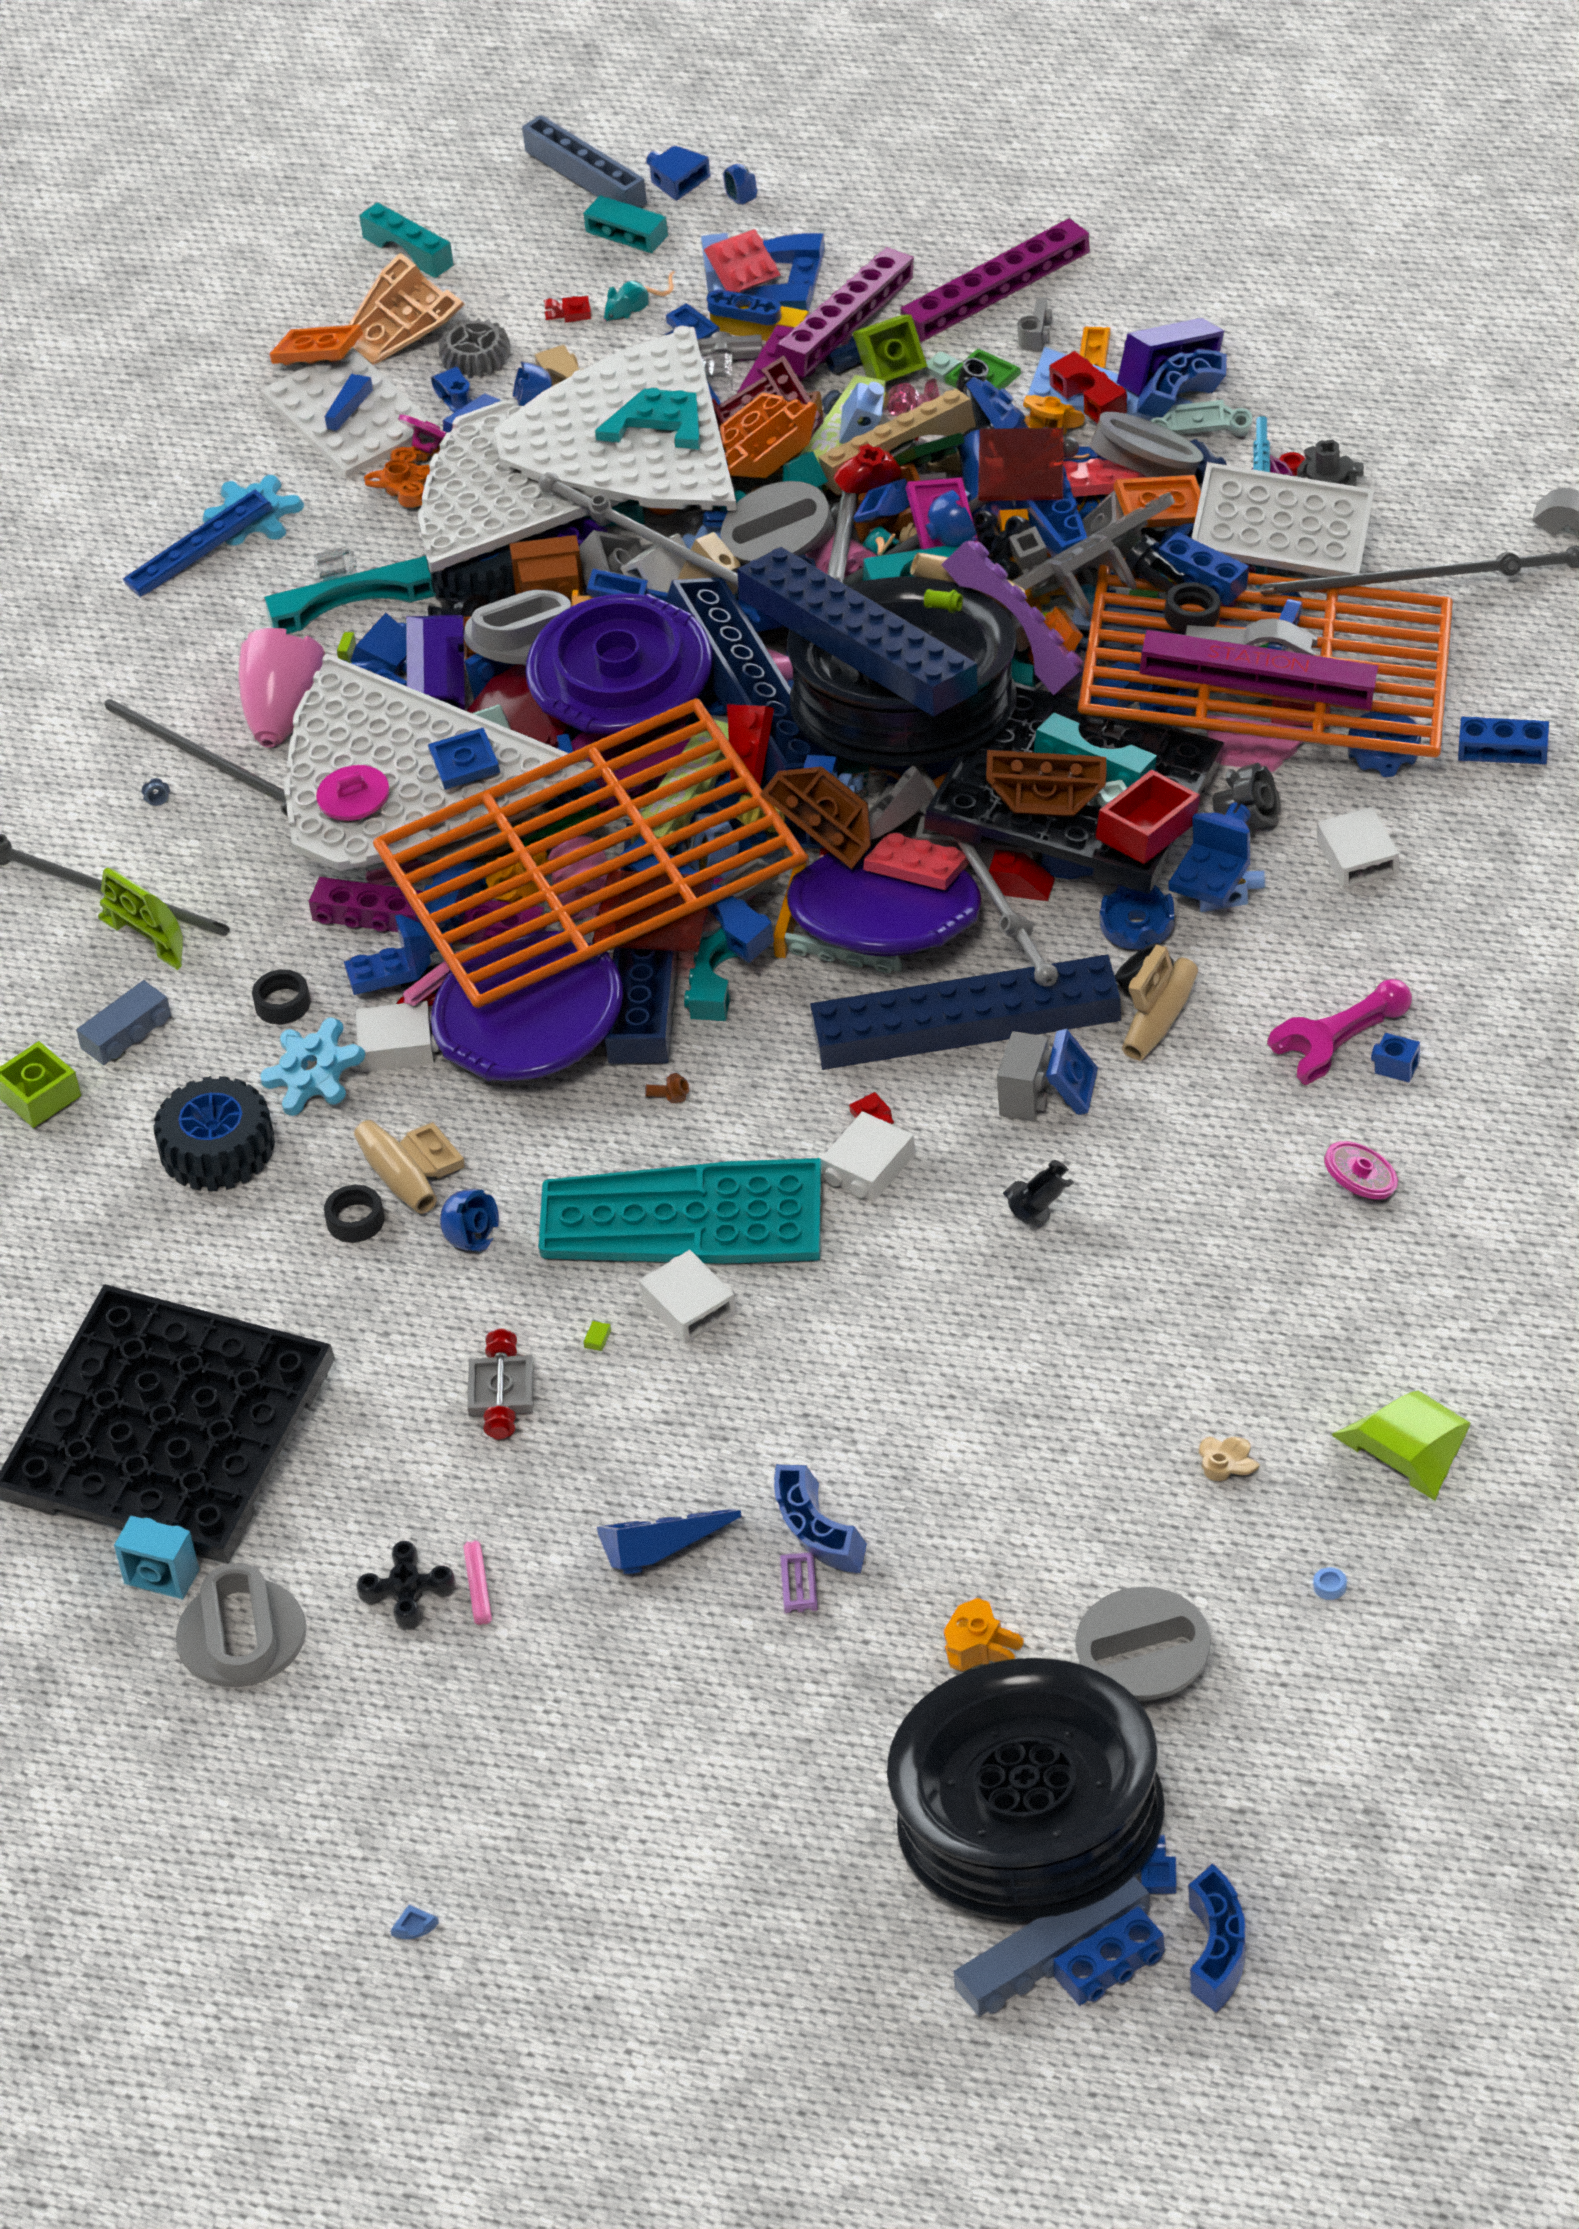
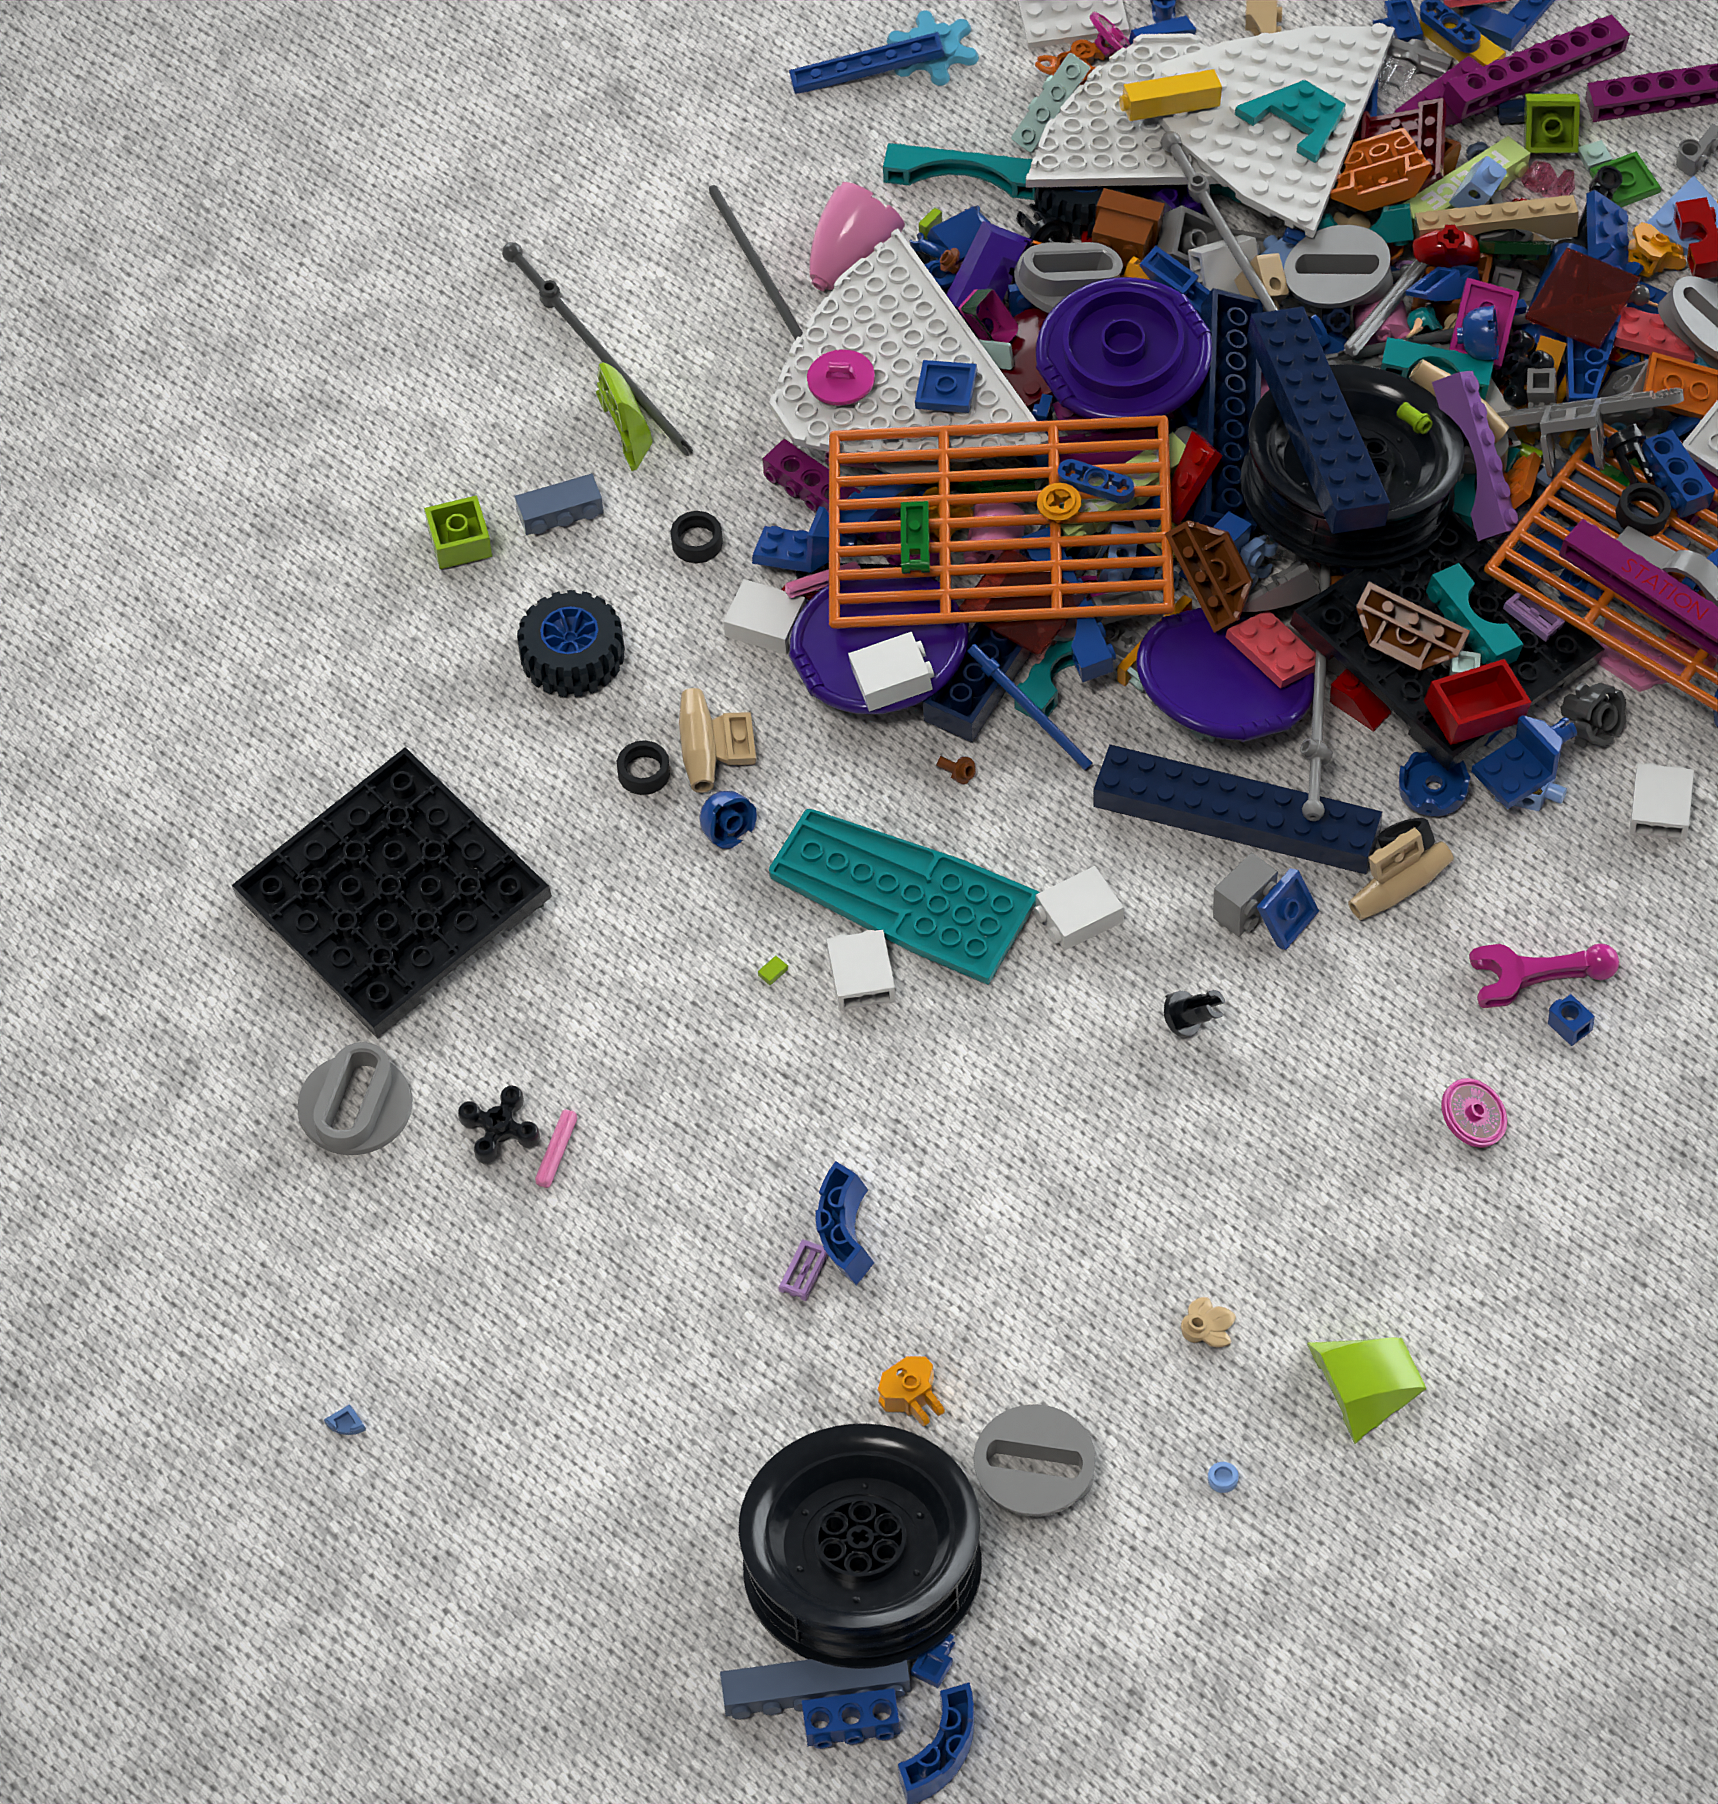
camera: 25 degrees right, 10 degrees up
(155, 798) = (698, 295): sand blue plate -> none
(156, 1557) = (320, 1010): medium azure brick -> none
(322, 1078) = (686, 629): medium azure plate -> none
(334, 564) = (962, 137): clear brick -> none
(391, 666) = (950, 261): none -> dark orange plate
(405, 500) = (1048, 104): none -> light aqua bracket
(463, 678) = (989, 299): none -> dark pink piece
(500, 1384) = (670, 979): light grey plate -> none
(516, 892) = (915, 536): none -> green plate
(528, 442) = (1171, 95): none -> yellow brick
(530, 382) = (1227, 26): blue cylinder -> none
(561, 1019) = (891, 671): none -> white brick
(639, 799) = (1063, 493): none -> light orange gear
(642, 1543) = (700, 1177): blue wedge -> none
(656, 785) = (1090, 471): none -> blue beam
(657, 981) = (992, 668): none -> blue bar
(872, 1105) = (1110, 866): red plate -> none
(1144, 736) = (1531, 617): none -> lavender tile

